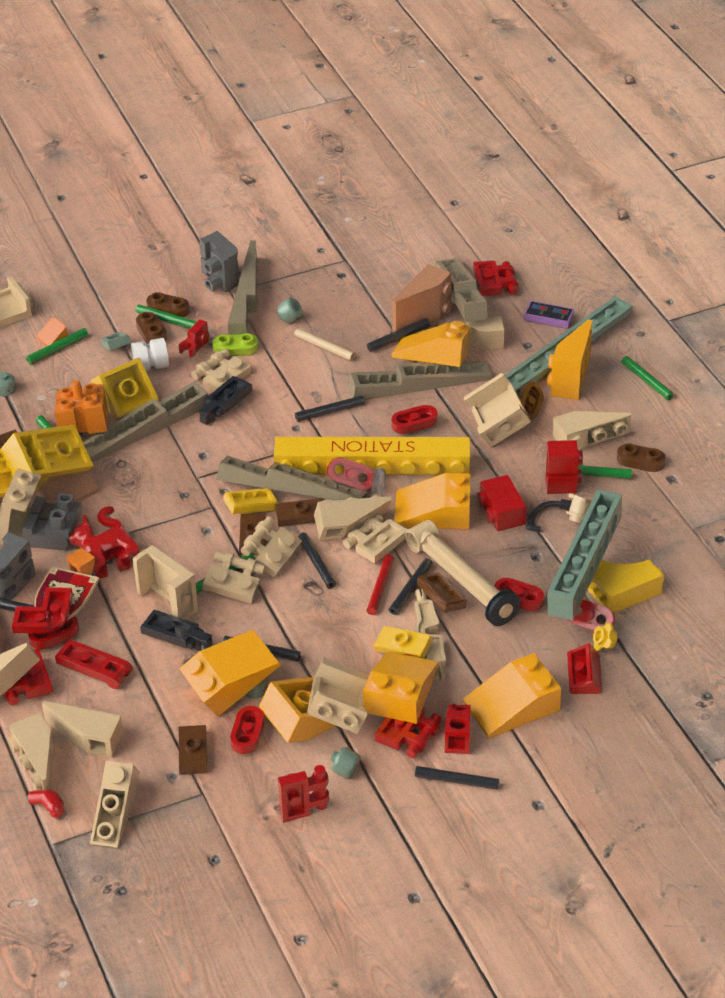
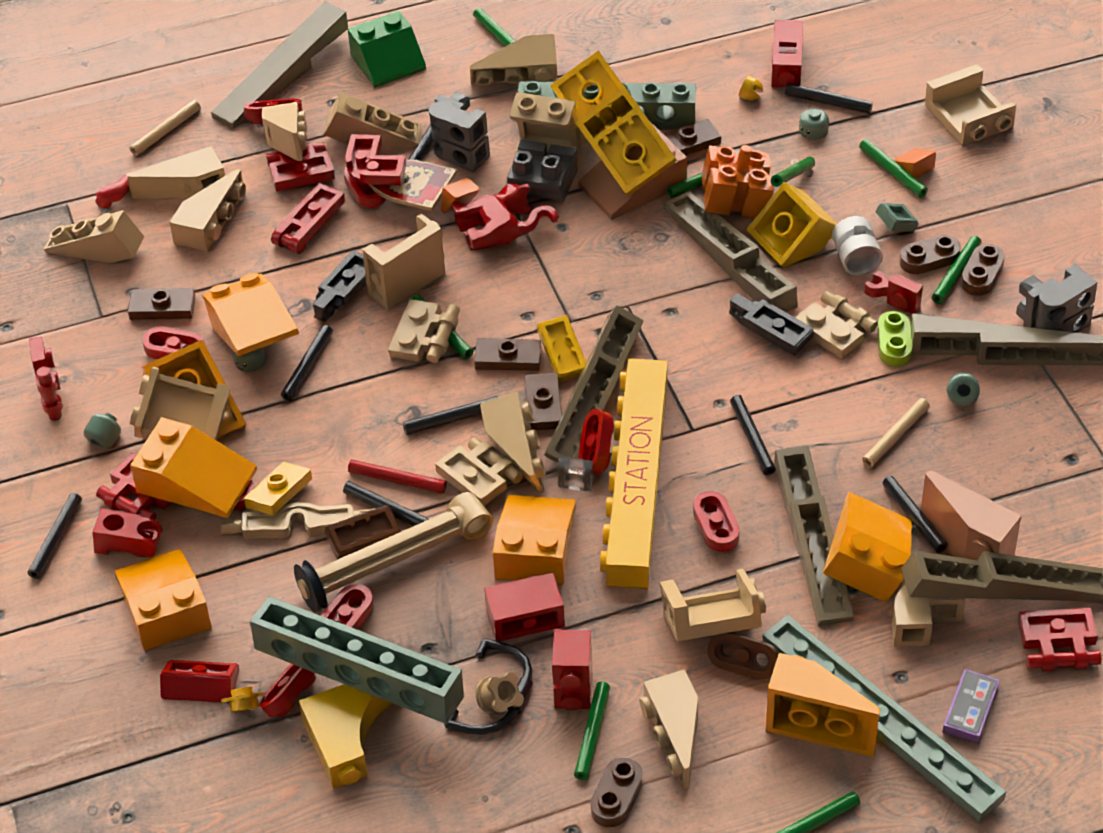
camera: 95 degrees right, 5 degrees up
(58, 385) = (793, 171): none -> green piece
(276, 552) = (467, 374): tan plate -> none

